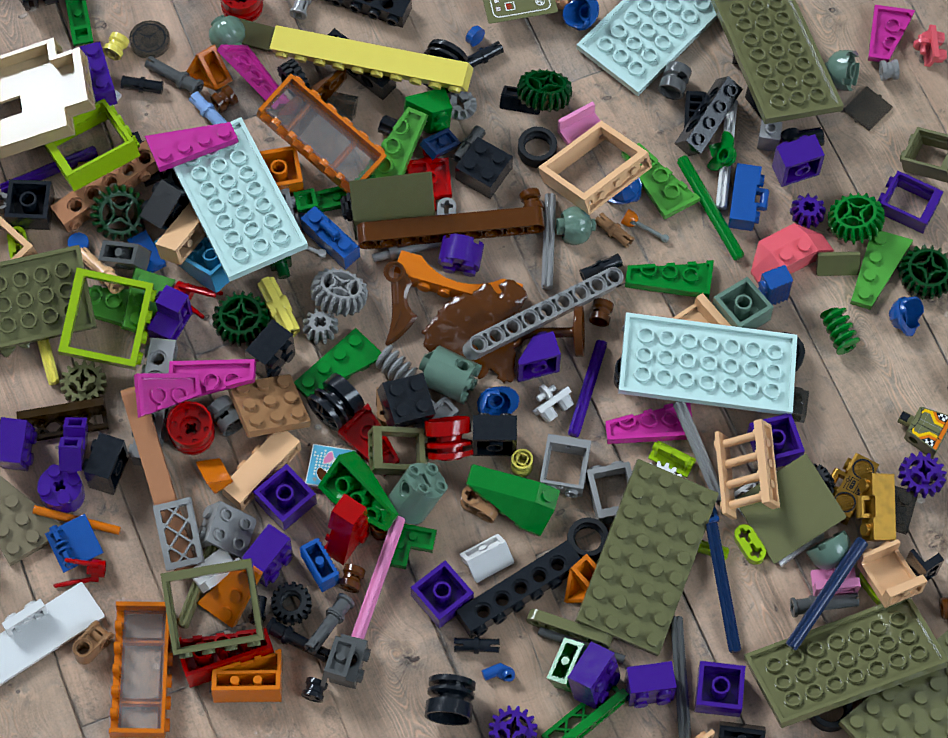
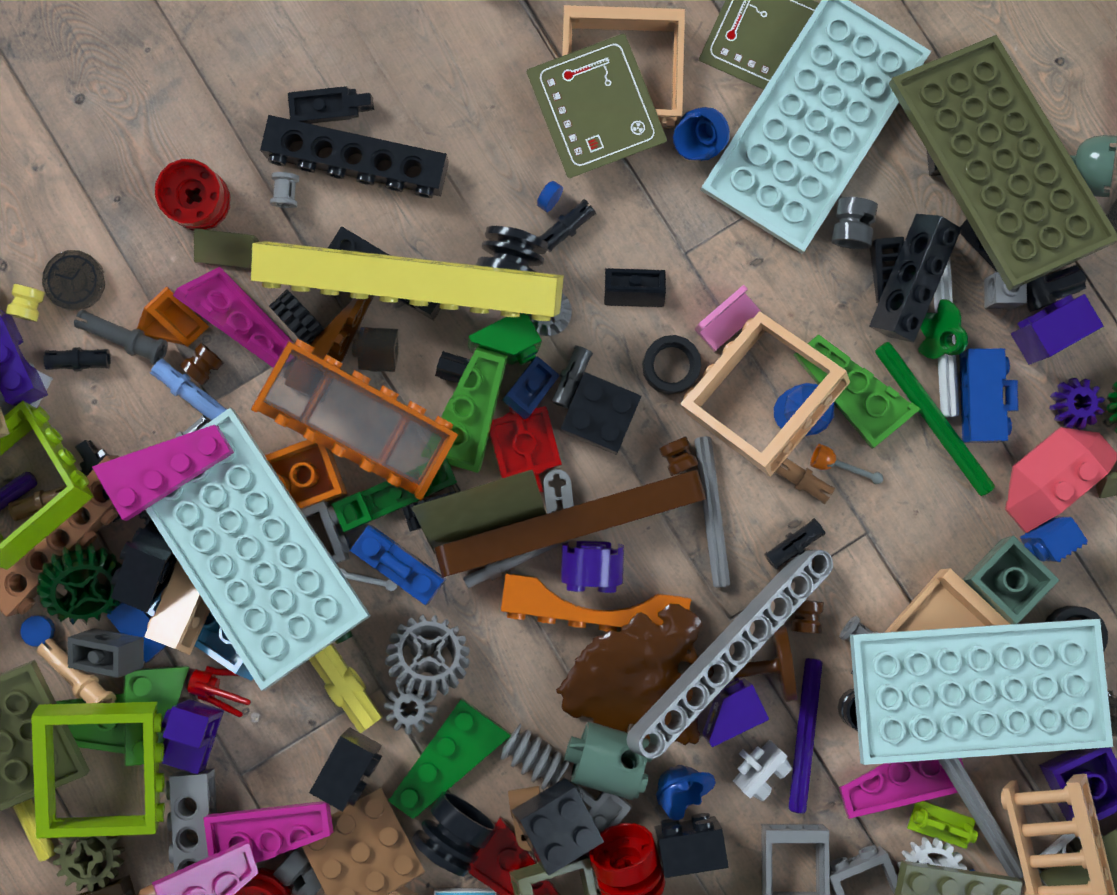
camera: 10 degrees left, 20 degrees up
(224, 315) = (294, 729): dark green gear -> none
(226, 31) = (184, 255): sand green plant -> none
(402, 314) = (523, 670): reddish brown piece -> none
(521, 467) = (735, 863): light yellow wheel -> none
(544, 90) = (685, 284): dark green gear -> none
(575, 226) = (746, 485): sand green plant -> none
(683, 279) = (912, 541): green wing -> none

